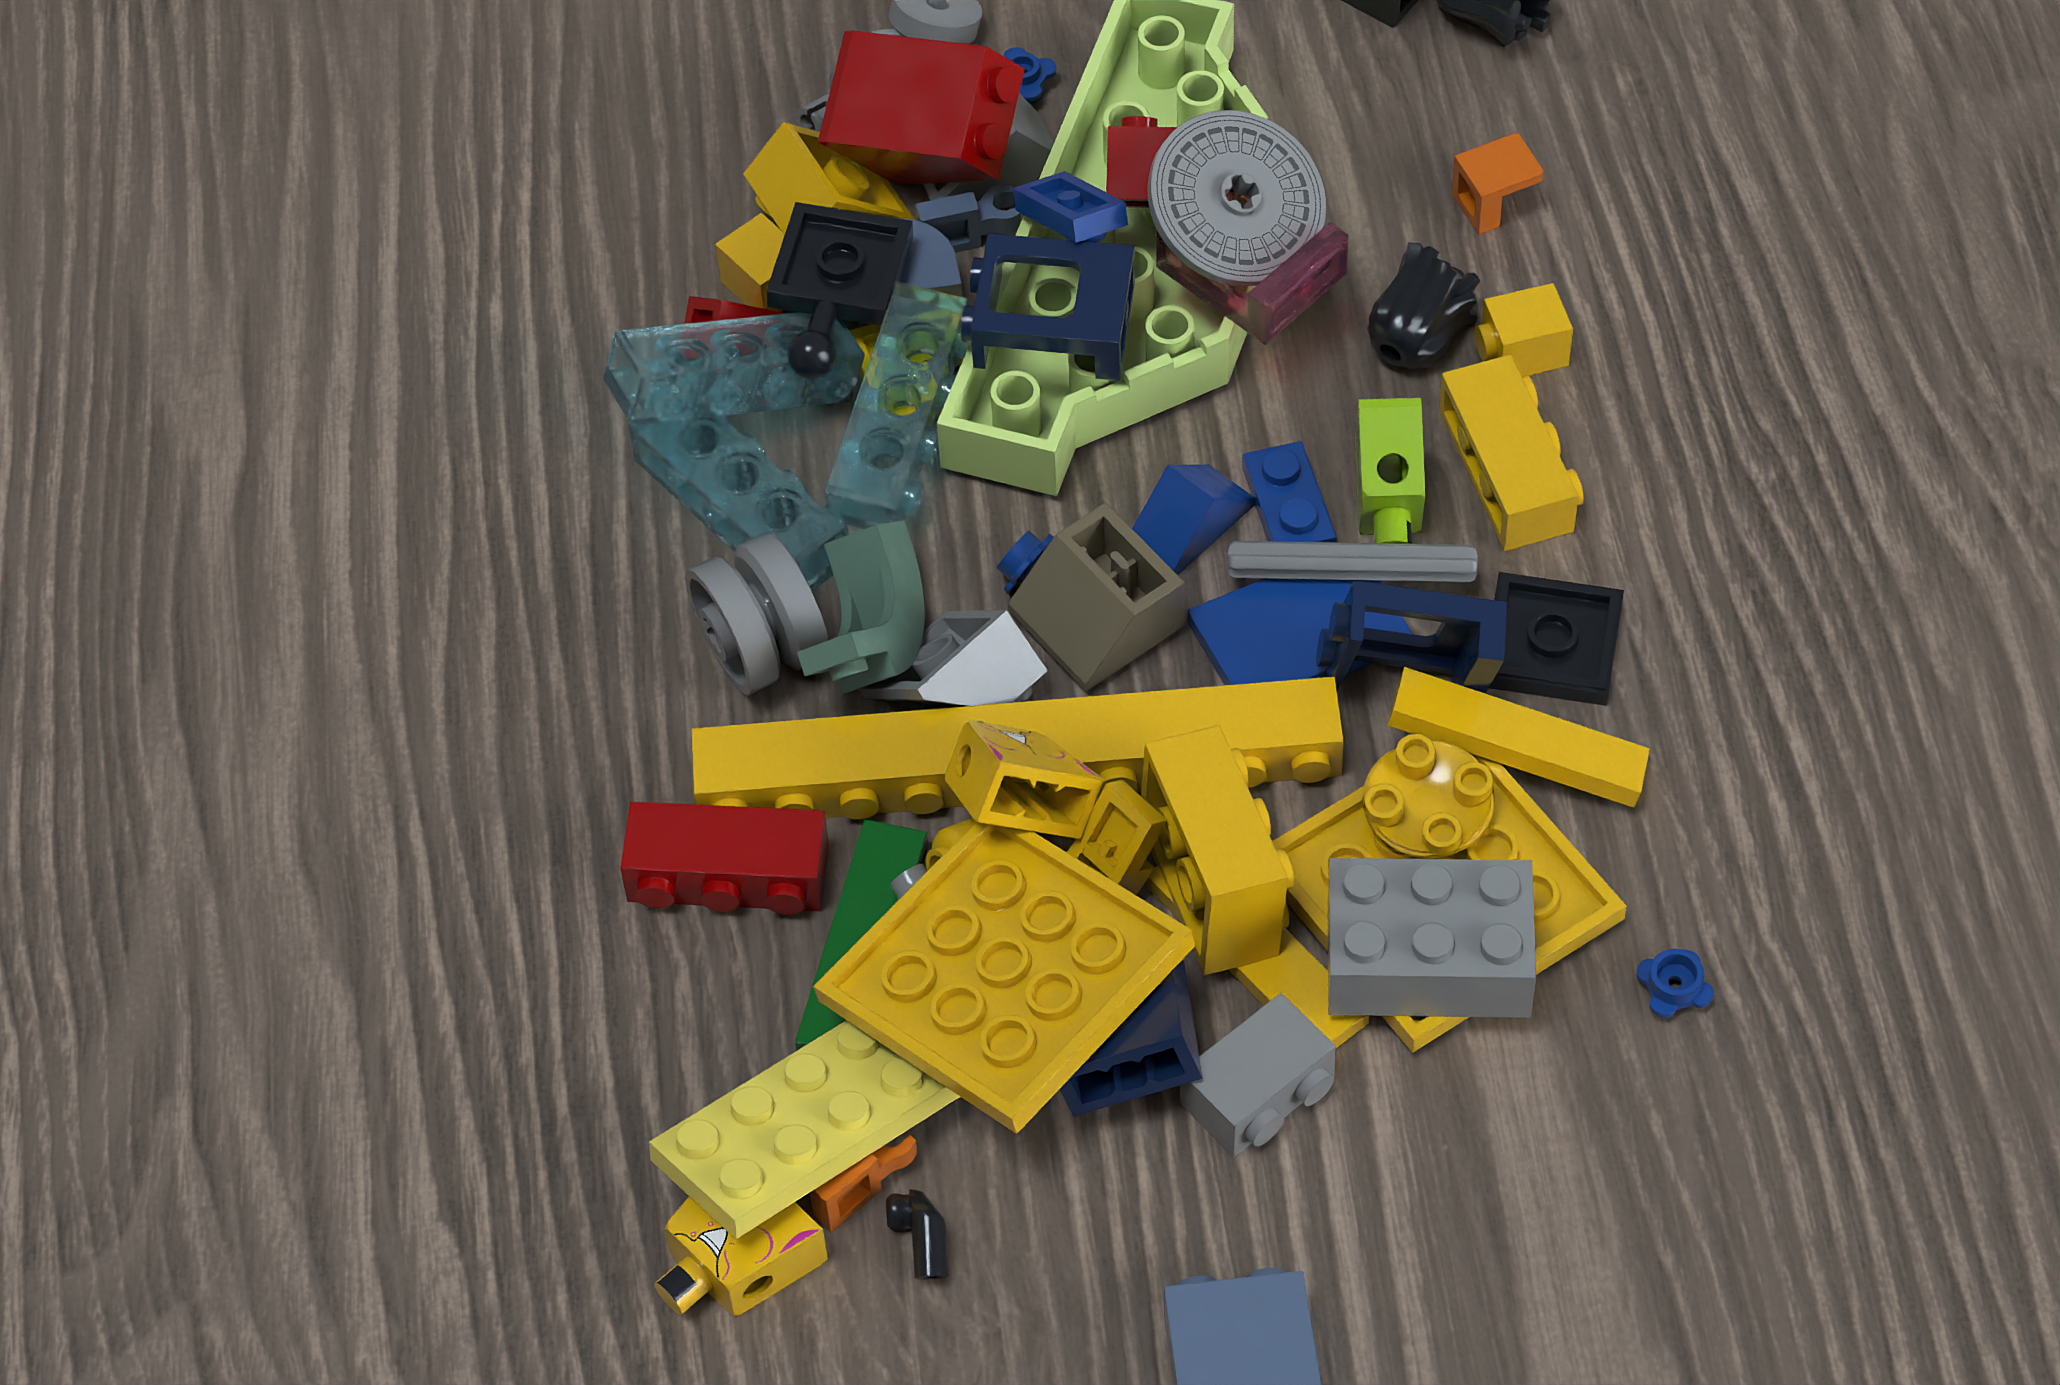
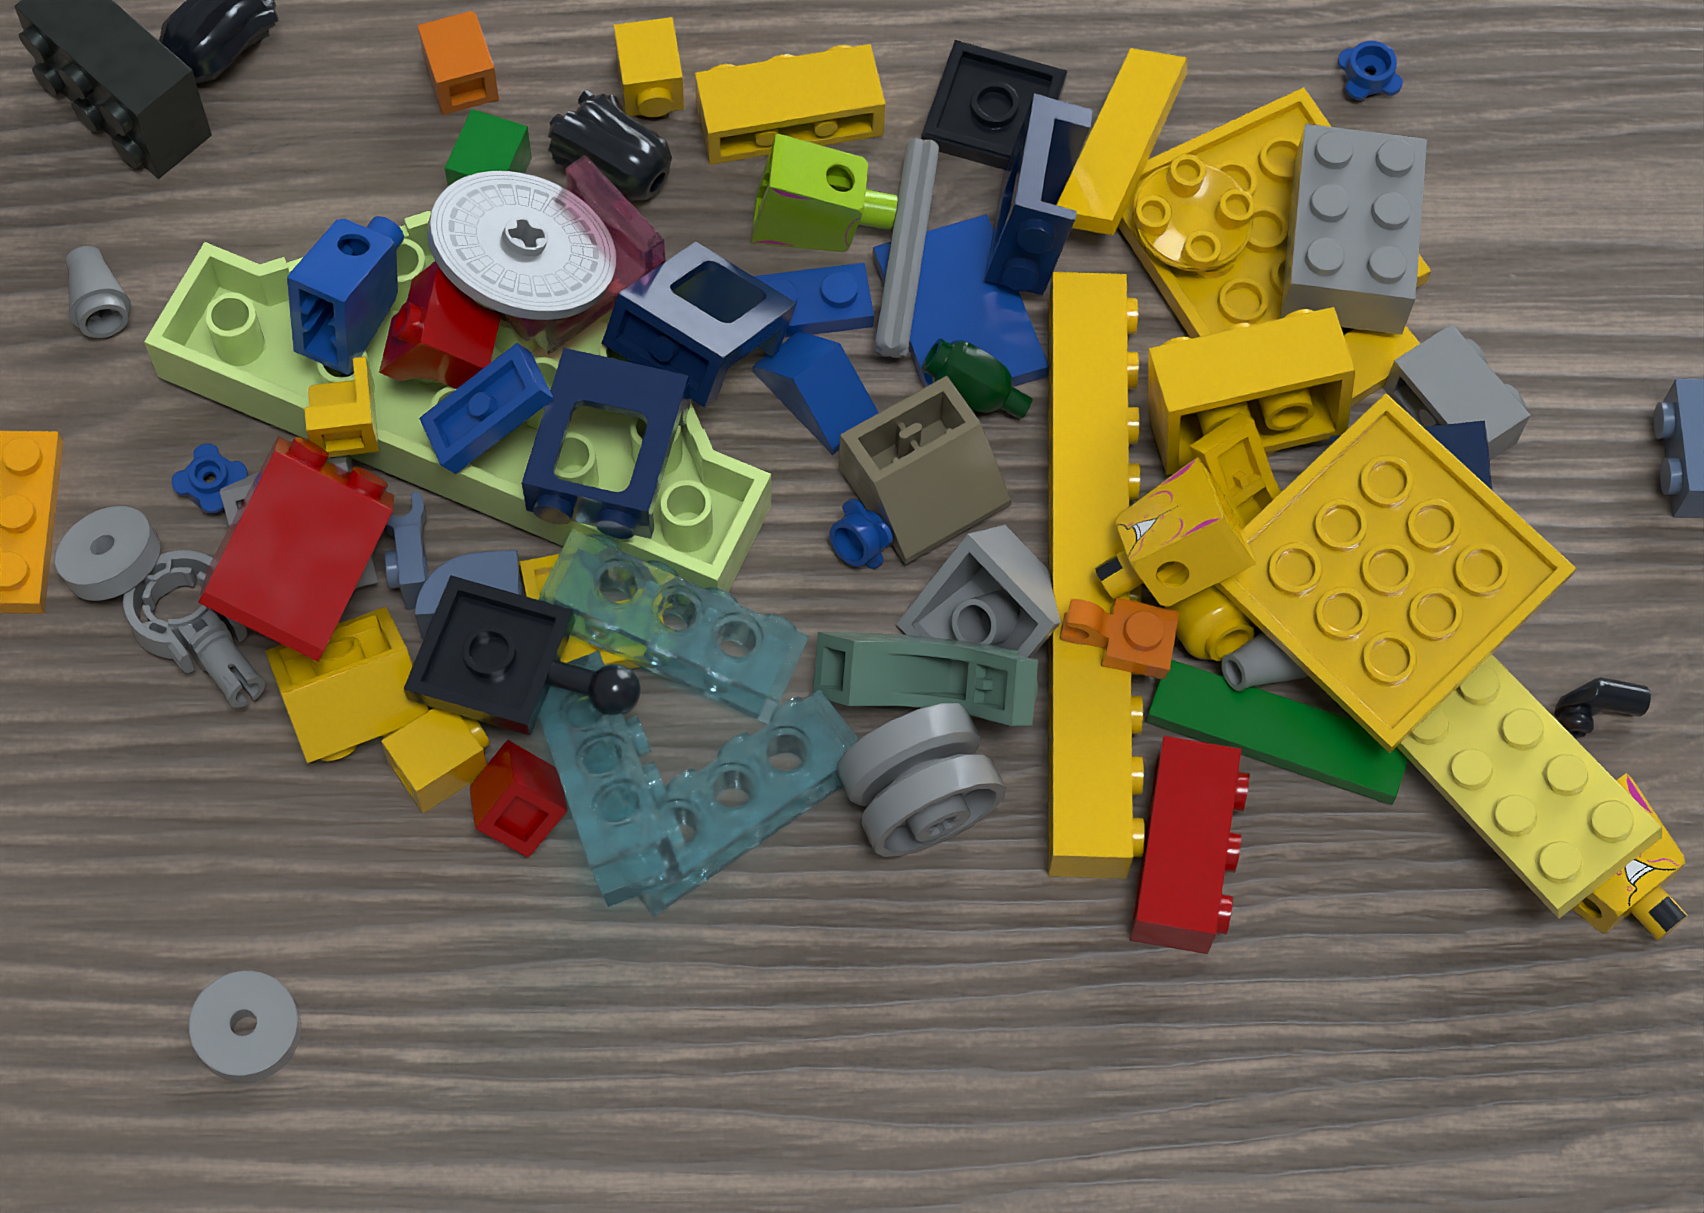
camera: 90 degrees left, 10 degrees up
(517, 203) = (255, 1054): none -> light grey piece
(920, 764) = (1133, 635): none -> orange plate
(1062, 122) = (344, 414): none -> yellow panel
(1174, 350) = (700, 326): none -> dark blue window
(1175, 76) = (344, 291): none -> blue torso
(1210, 630) = (976, 376): none -> dark green plant
(1385, 218) = (488, 145): none -> green brick

